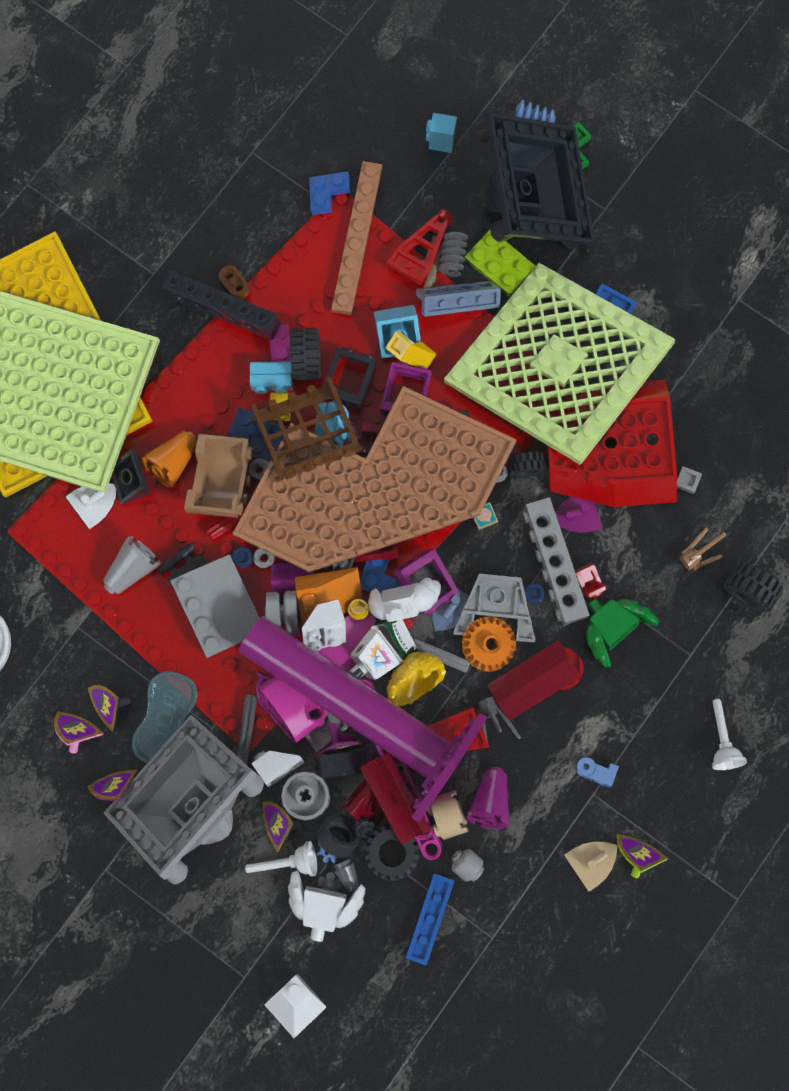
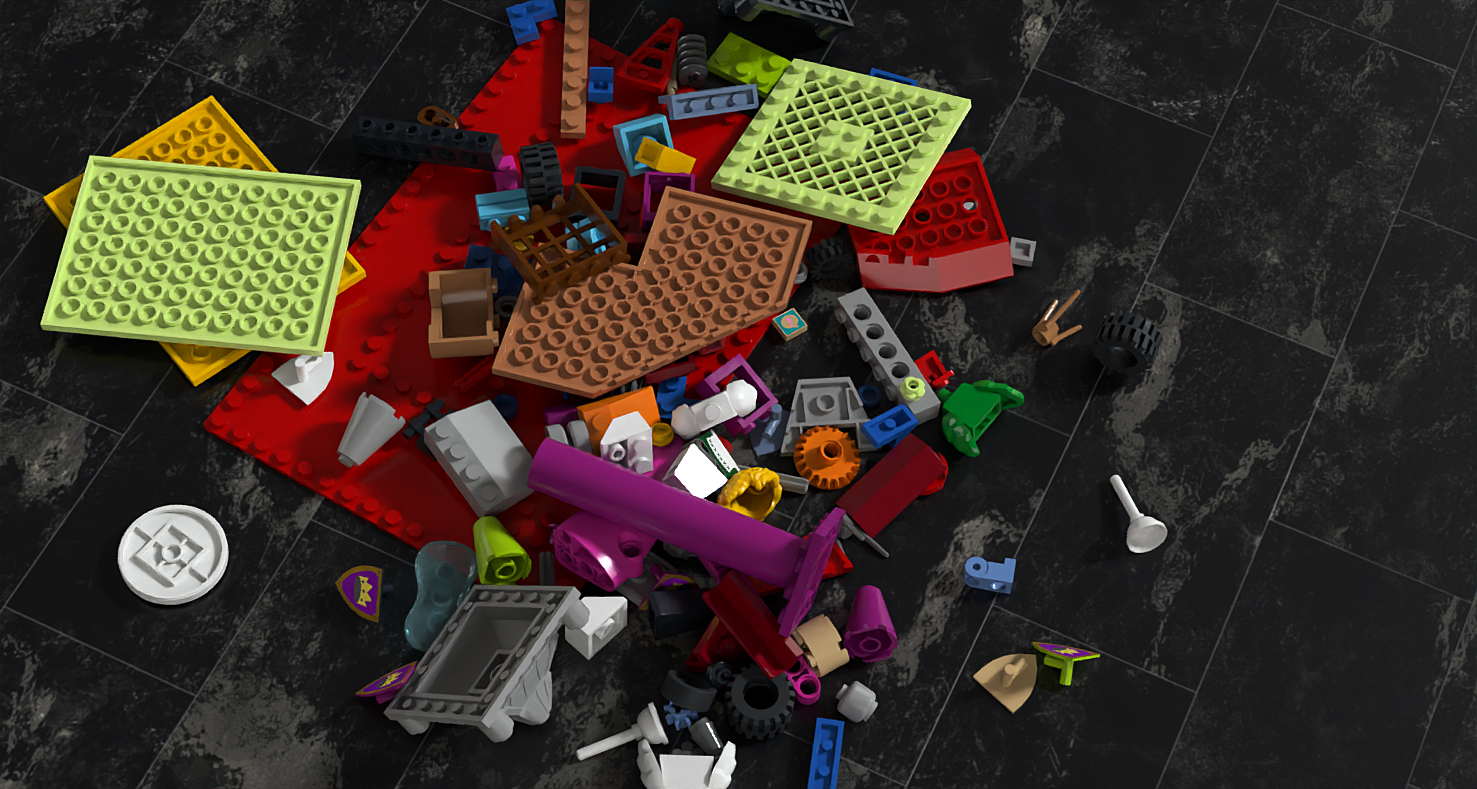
camera: 15 degrees left, 20 degrees down
(74, 729) = (326, 630): shield -> none
(130, 478) = (351, 338): black slope -> none
(170, 458) = (395, 310): orange cone -> none
(212, 692) = (498, 554): none -> lime cone
(263, 564) = (531, 395): light grey plate -> none
(278, 823) = (607, 691): shield -> none
(305, 783) = (638, 655): light grey wheel -> none
(372, 269) = (600, 84): none -> blue bracket
(543, 629) = (890, 427): none -> blue slope
(562, 600) = (909, 393): none -> yellowish green plate
(578, 516) = (903, 308): magenta shield -> none

